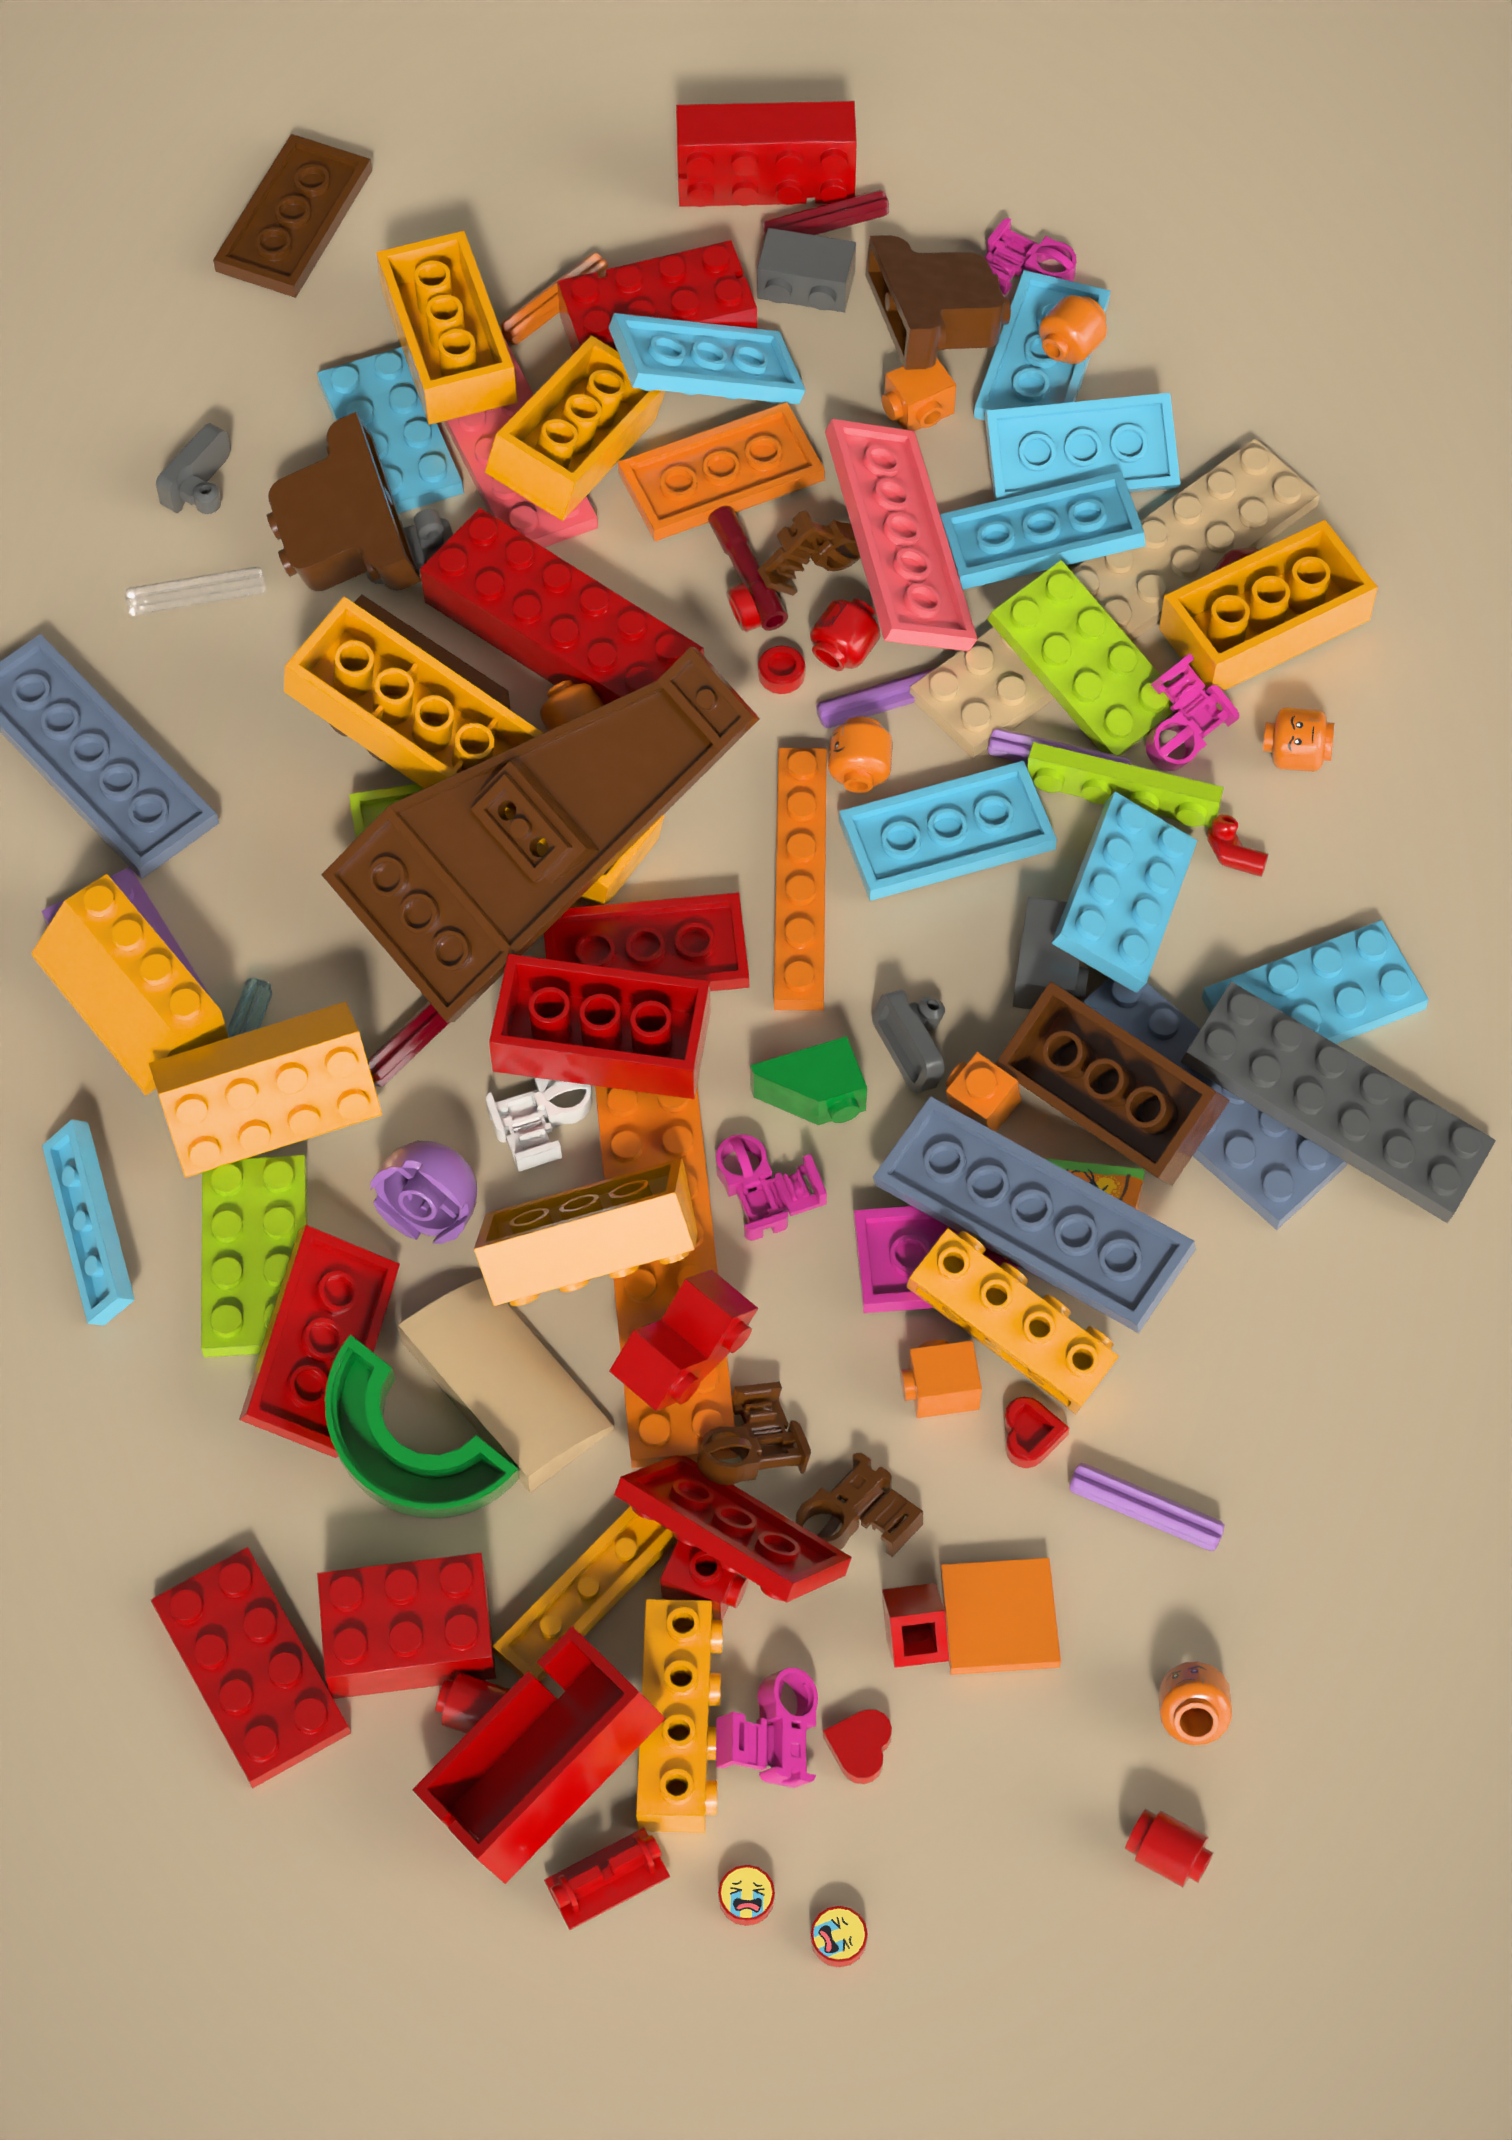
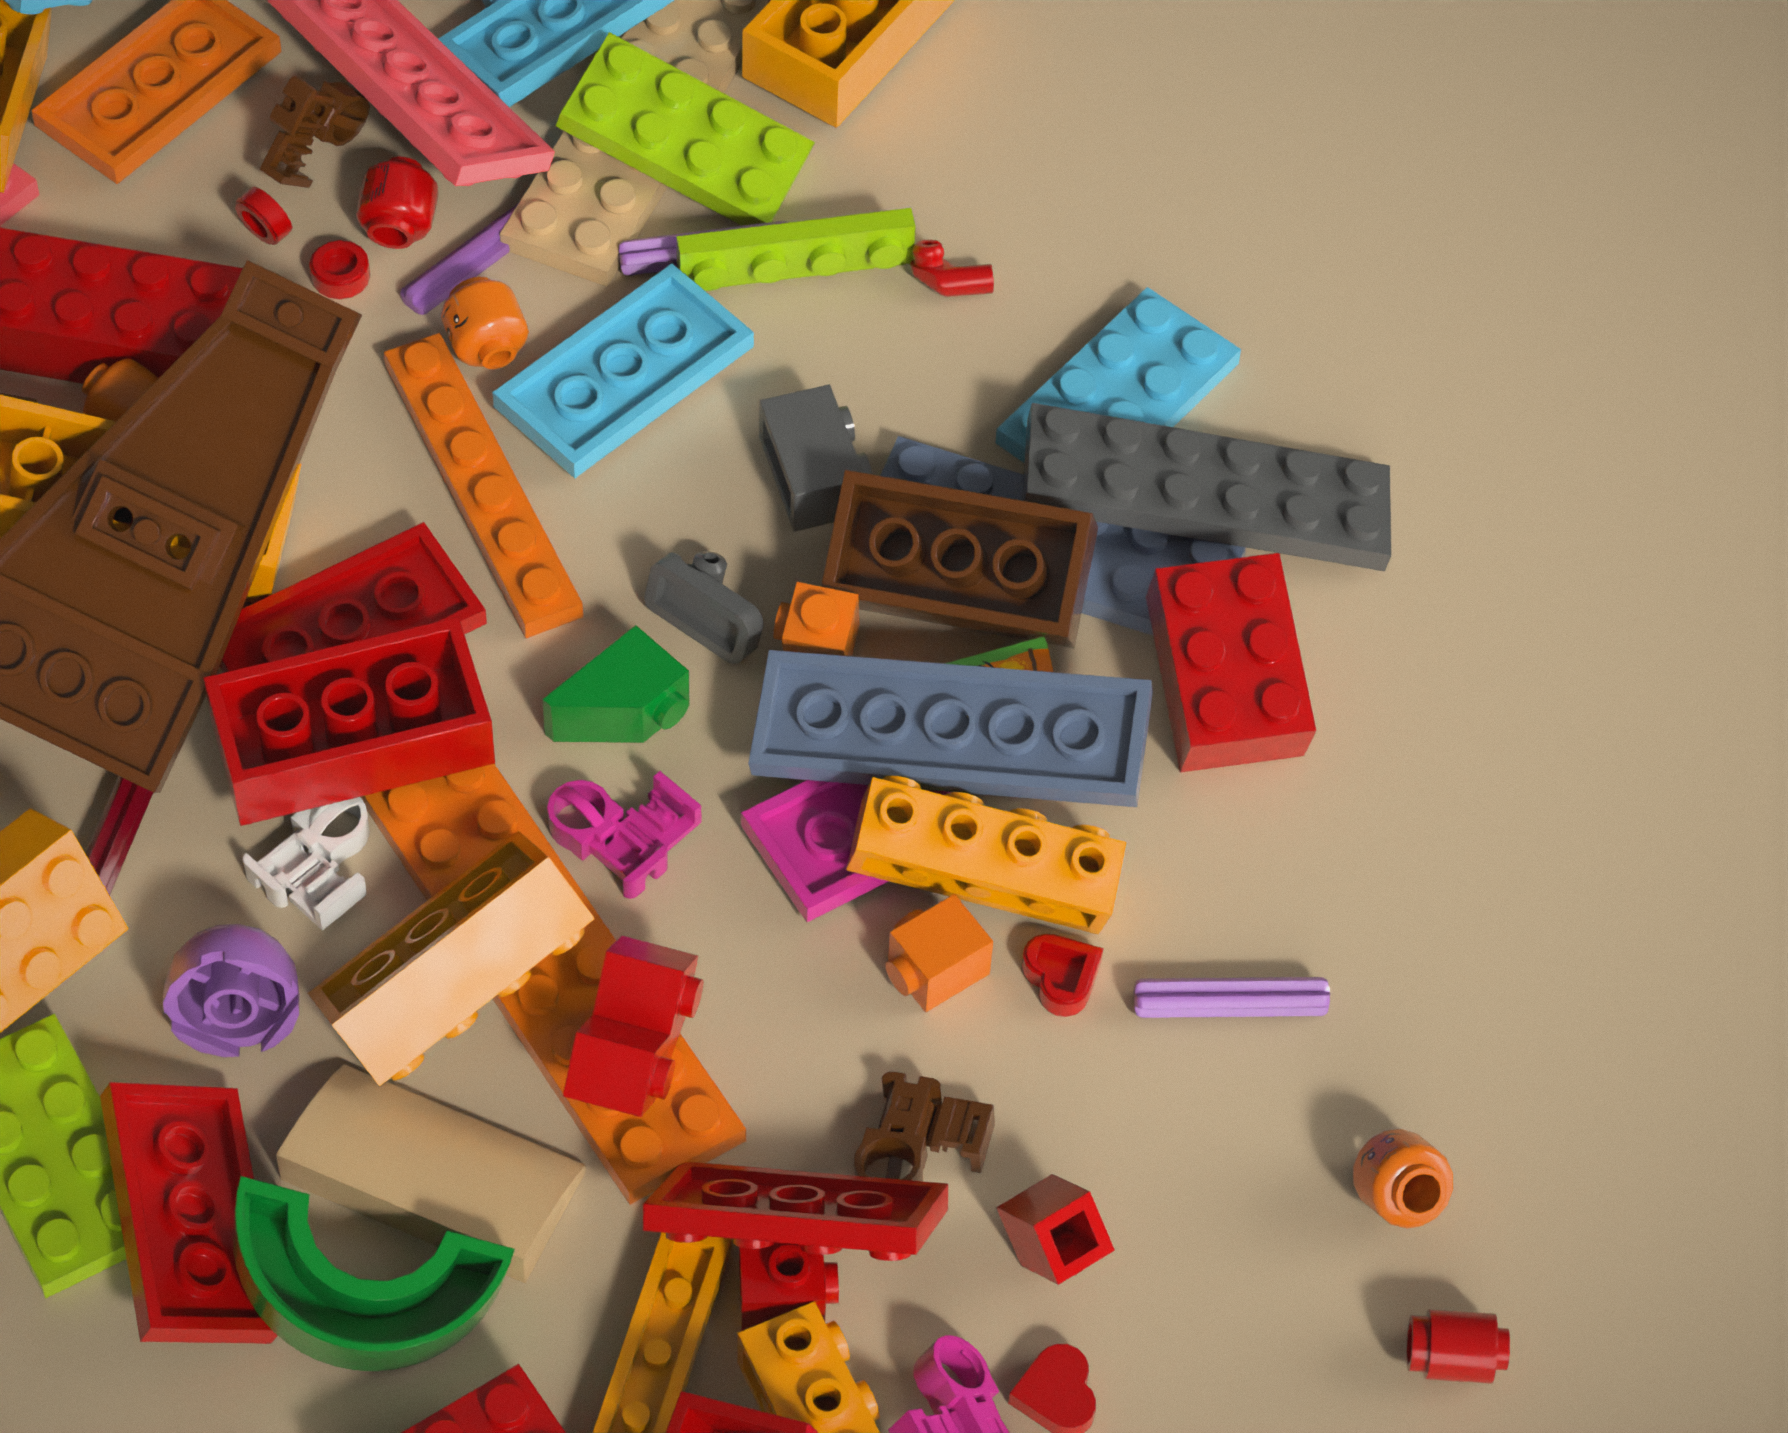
camera: 30 degrees left, 5 degrees down
(736, 545) = (217, 155): dark red piece -> none
(759, 1441) = (764, 1108): reddish brown piece -> none
(1000, 1616) = (1141, 1179): orange tile -> none
(1124, 892) = (862, 357): medium azure plate -> none
(1195, 715) = (834, 156): dark pink piece -> none
(1277, 1248) = (1230, 662): none -> red brick
(1299, 739) = (961, 132): orange head -> none

